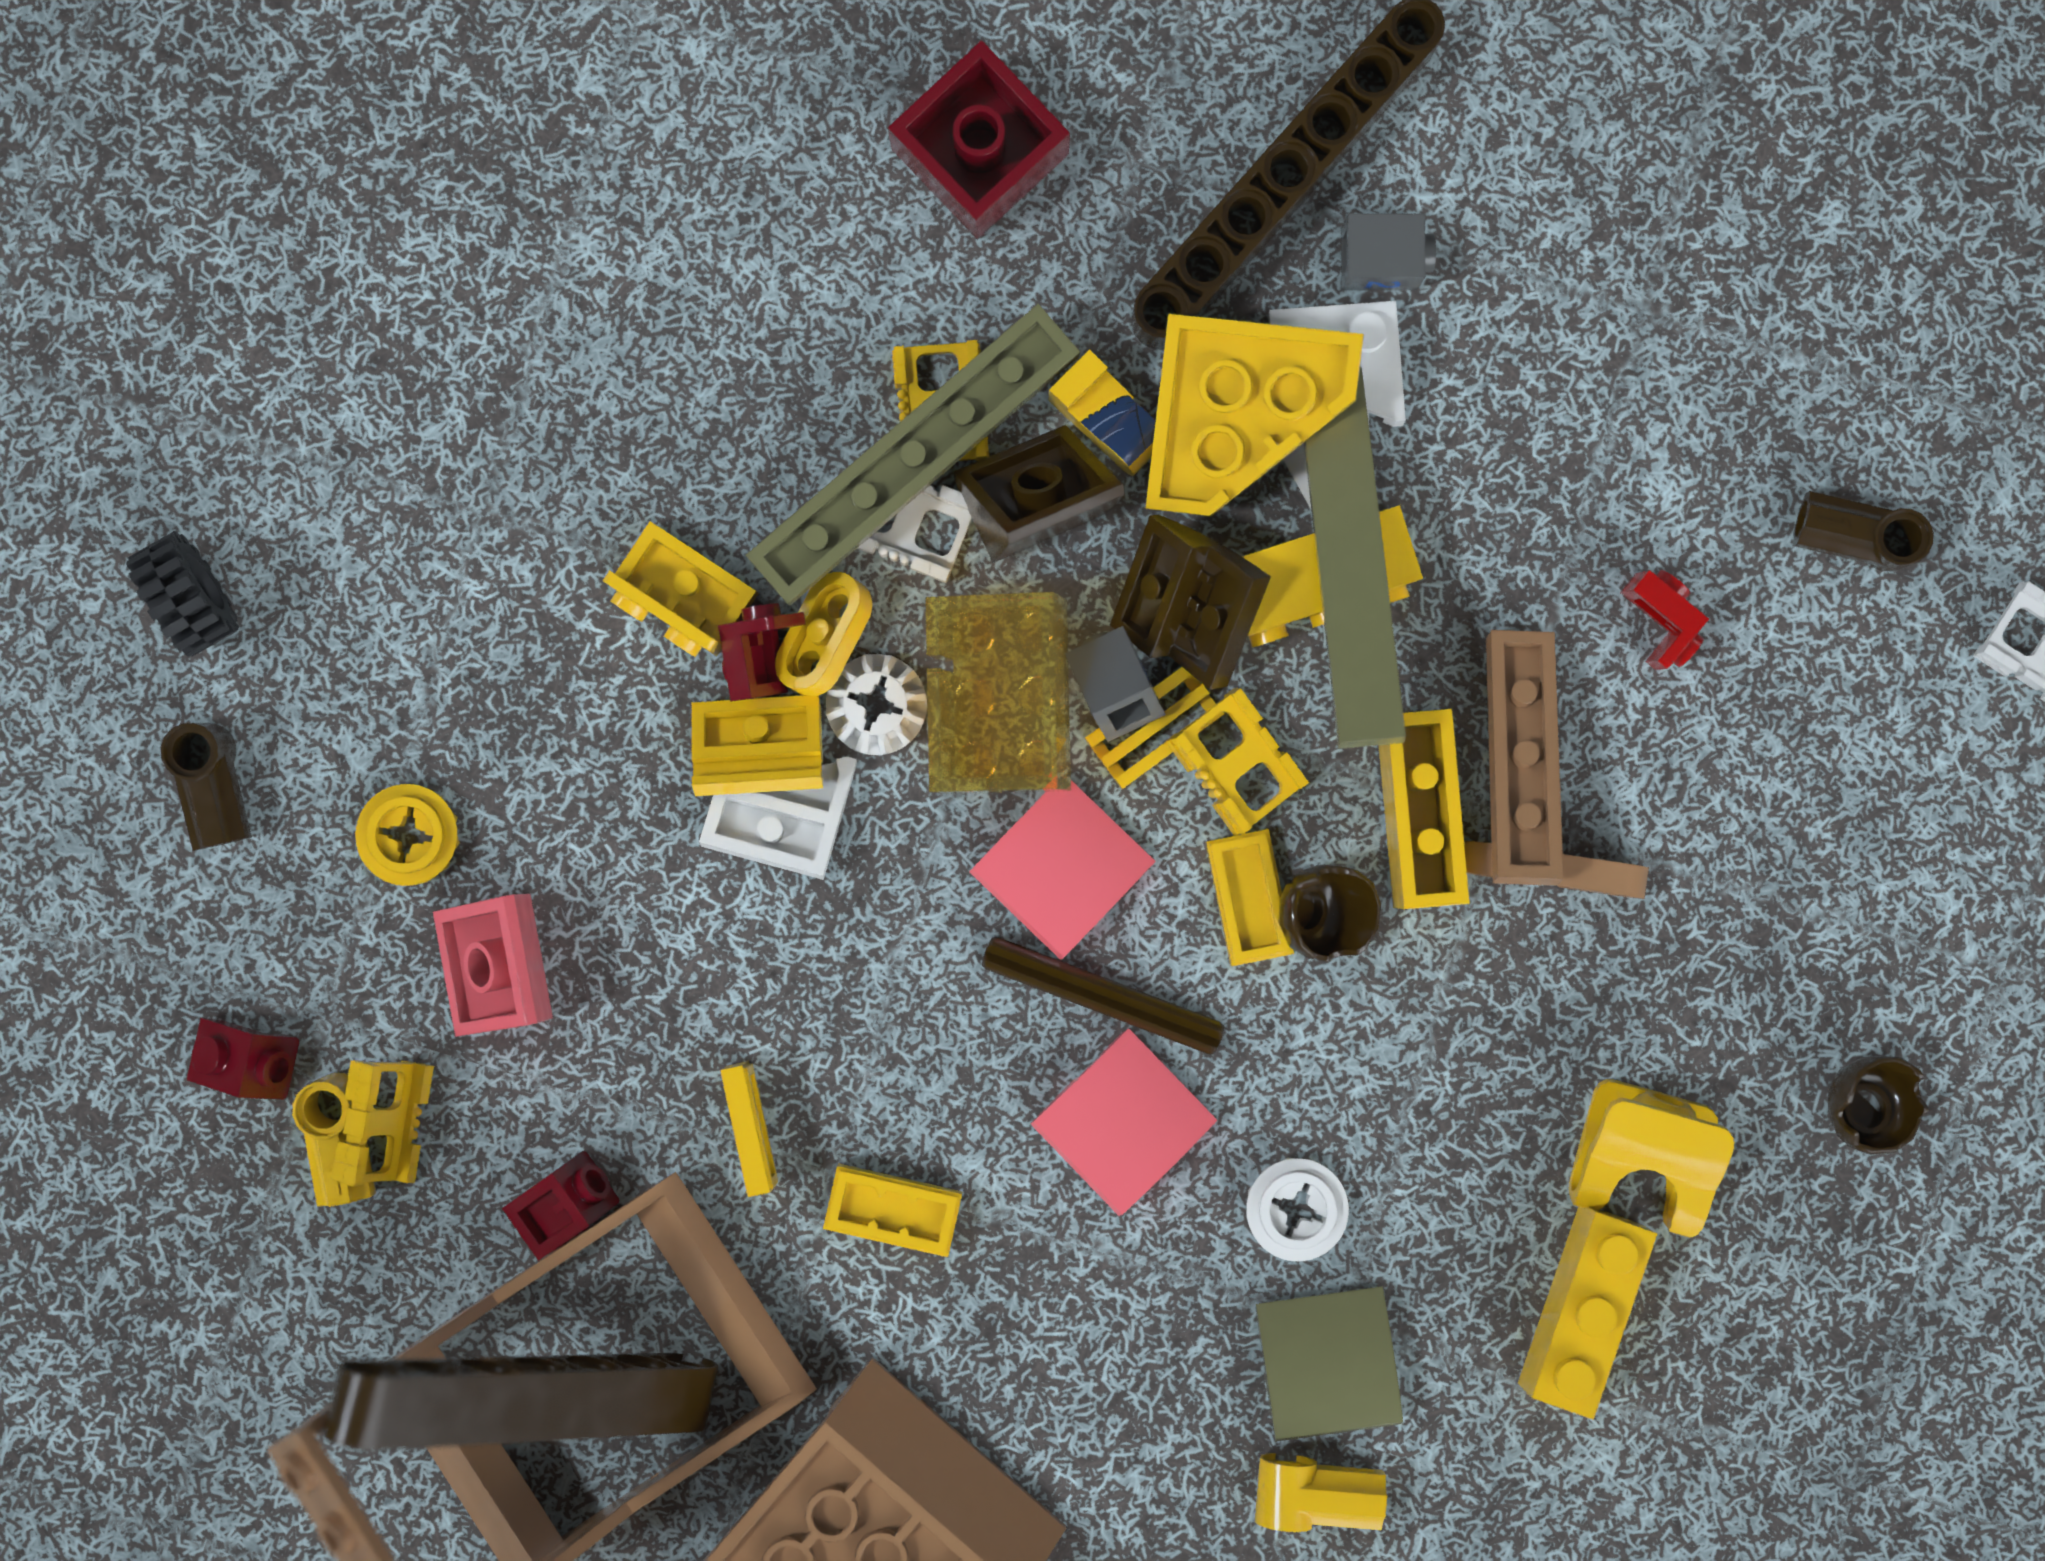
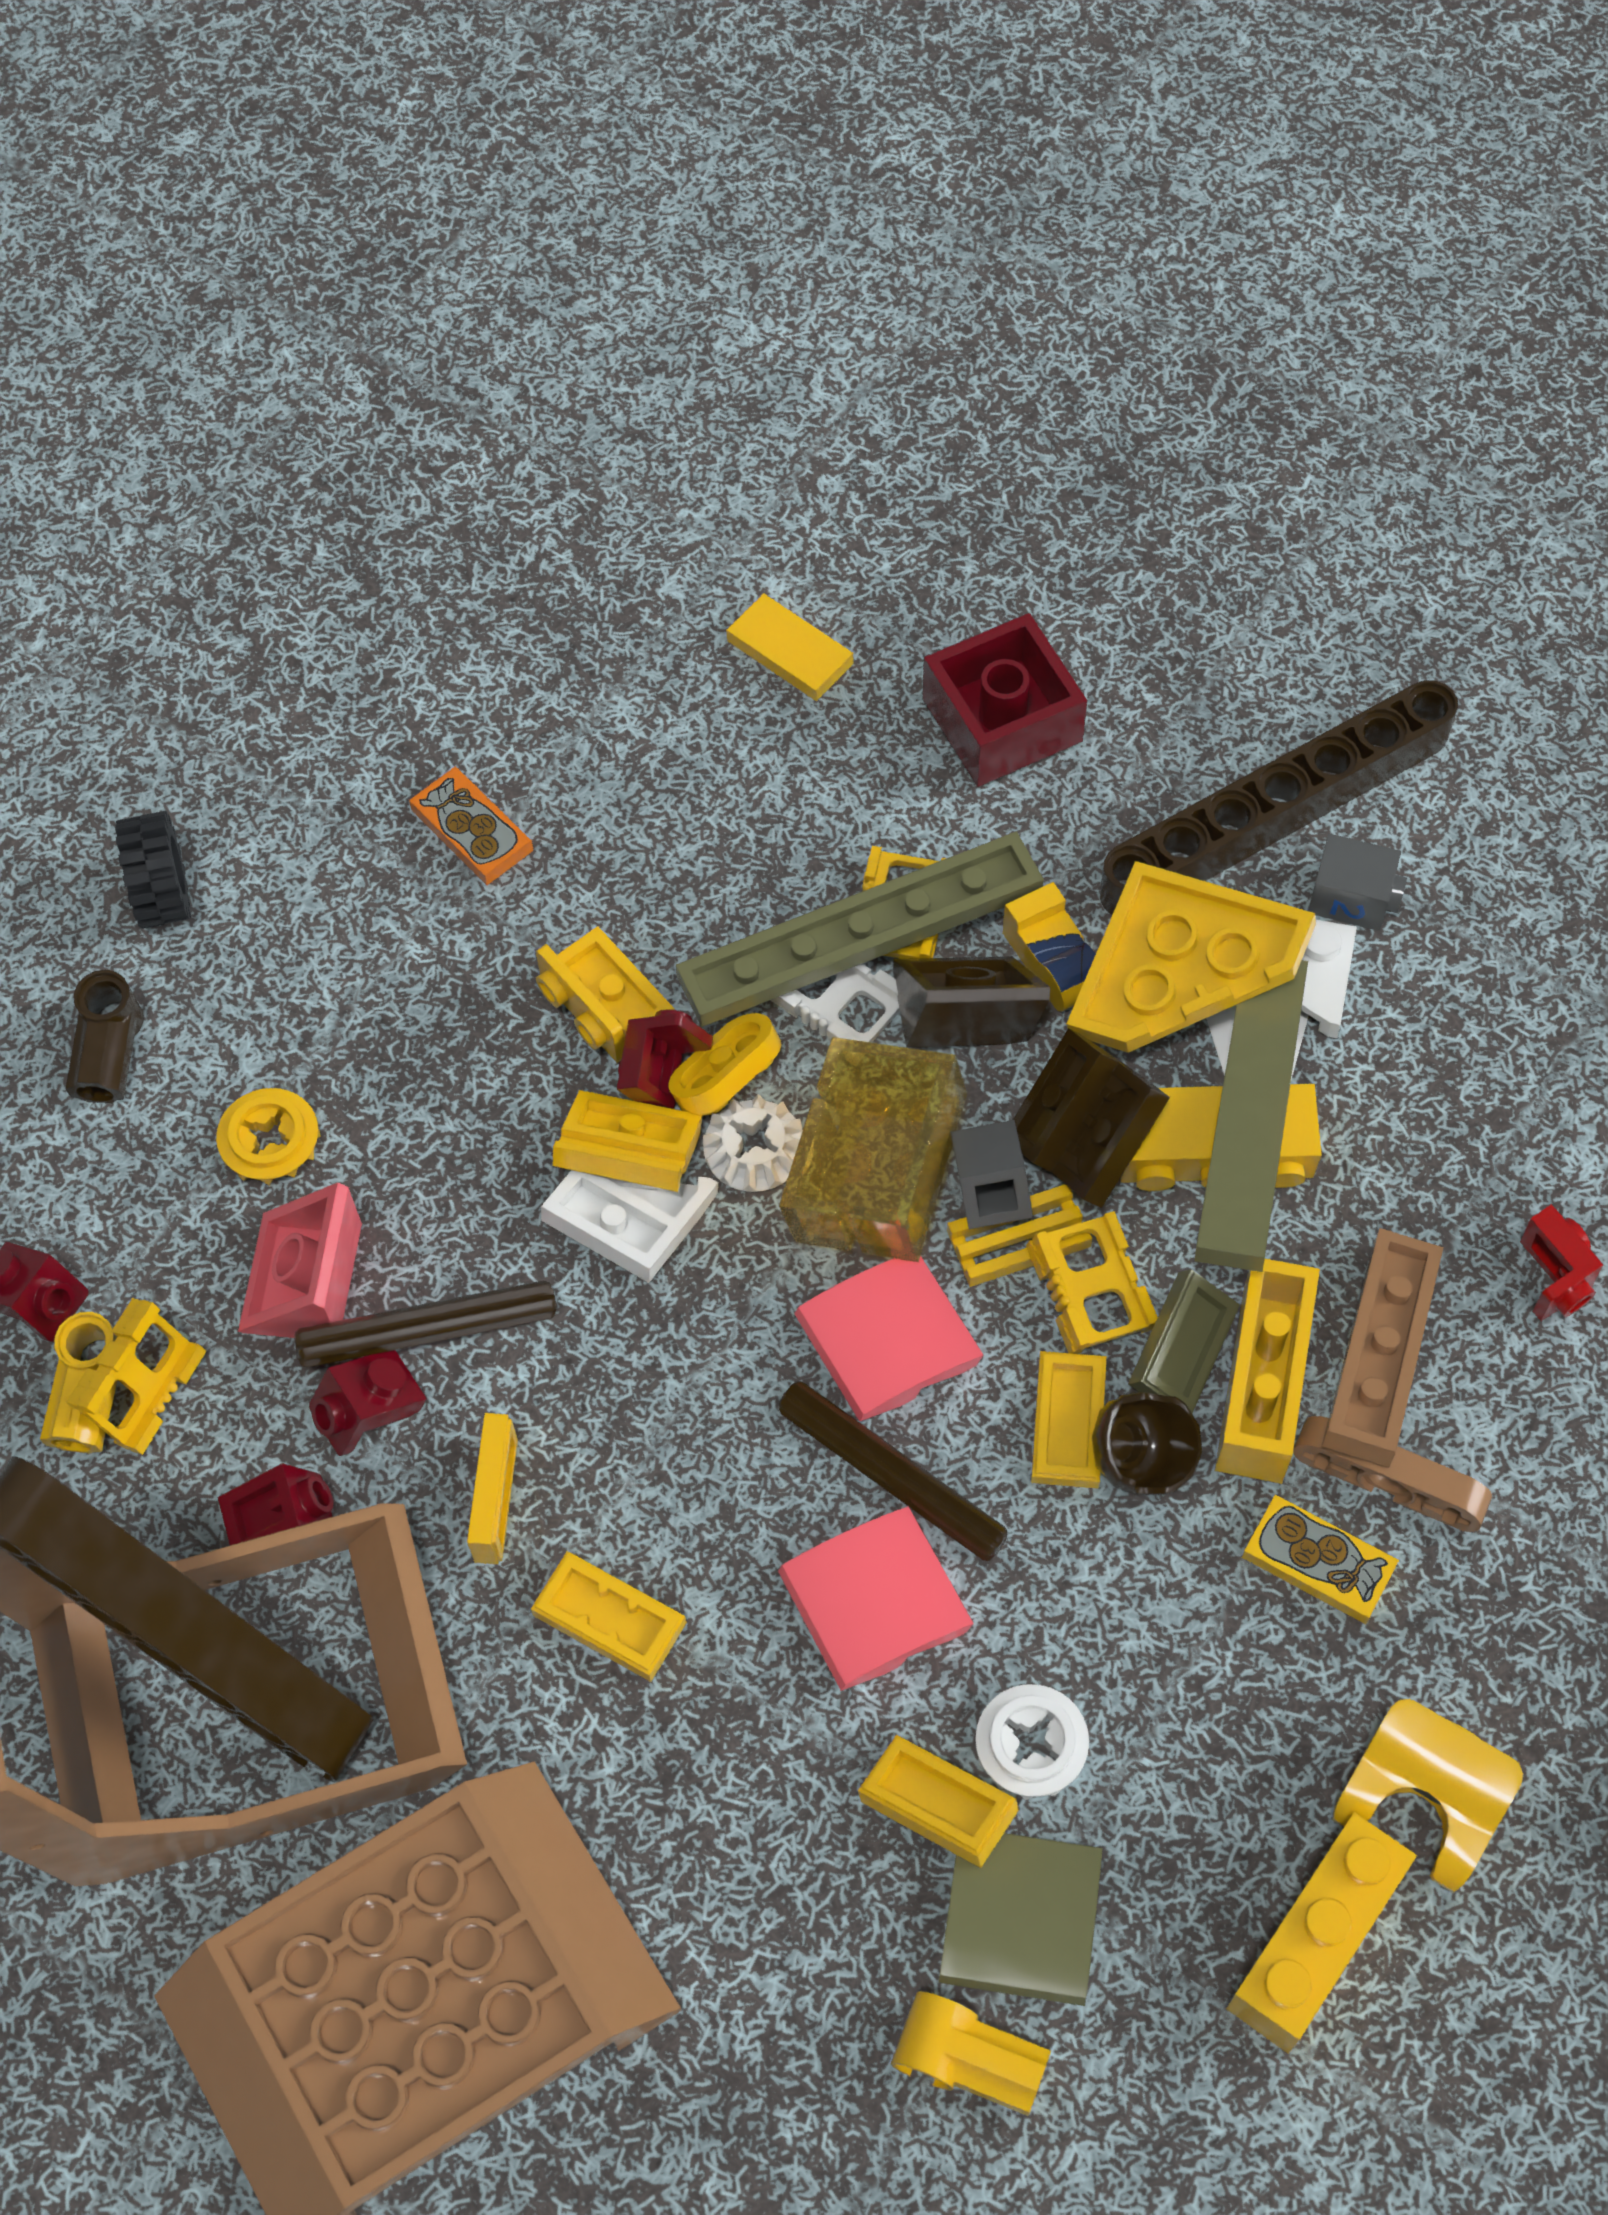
camera: 20 degrees right, 25 degrees down
(480, 433) = (471, 825): none -> tile
(600, 1073) = (363, 1397): none -> dark red bracket
(630, 987) = (424, 1323): none -> dark brown axle
(735, 124) = (790, 647): none -> yellow tile
(1232, 1290) = (938, 1801): none -> yellow tile
(1335, 799) = (1185, 1339): none -> olive tile
(1507, 965) = (1320, 1559): none -> tile

